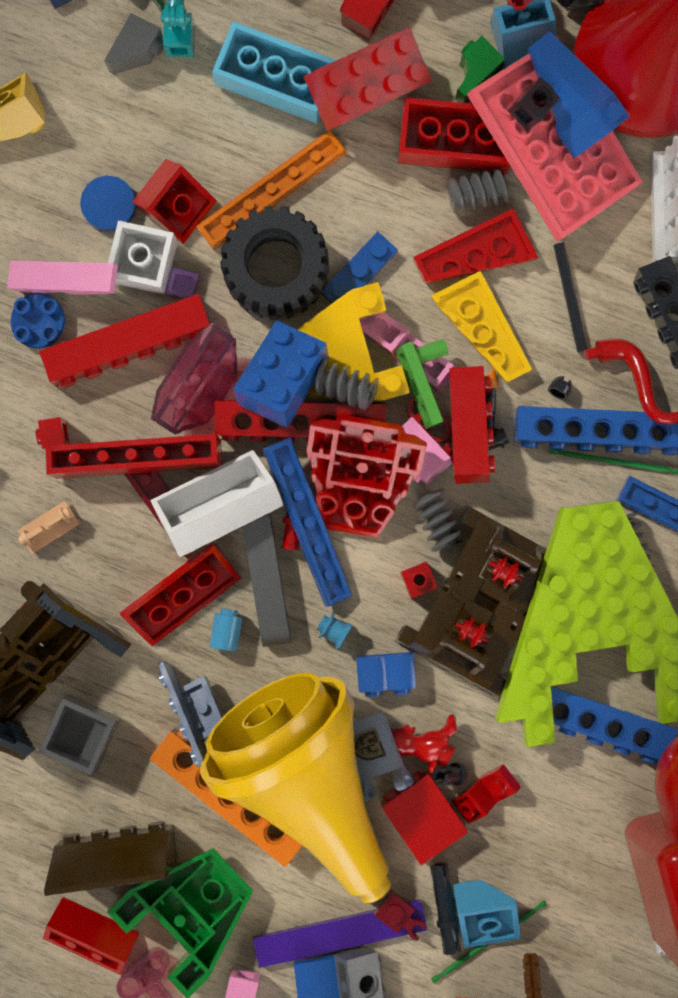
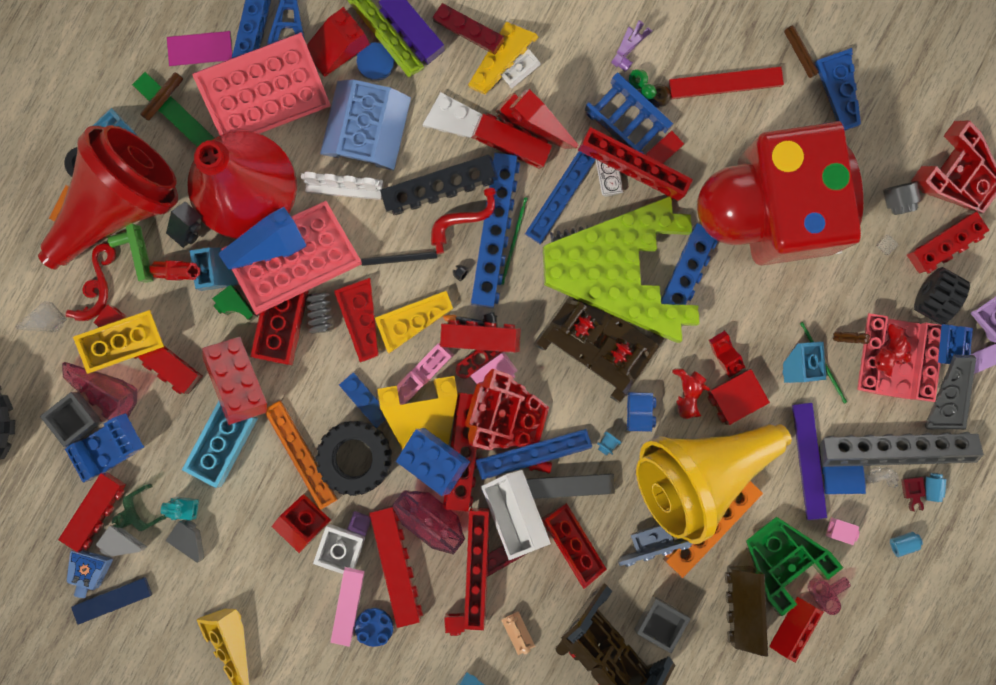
camera: 90 degrees left, 0 degrees up
(107, 202) = (296, 570): blue tile -> none
(226, 630) = (601, 517): dark azure brick -> none
(345, 387) = (446, 419): dark grey piece -> none
(378, 754) = (694, 423): sand blue flag -> none
(397, 913) = (799, 421): dark red plate -> none
(408, 579) = (574, 386): red plate -> none
(411, 361) = (432, 372): bright green piece -> none
(438, 520) = (542, 365): dark grey piece -> none
(447, 919) = (799, 389): black pin -> none
(453, 774) = (712, 373): black pin -> none
(525, 109) = (270, 277): black brick -> none

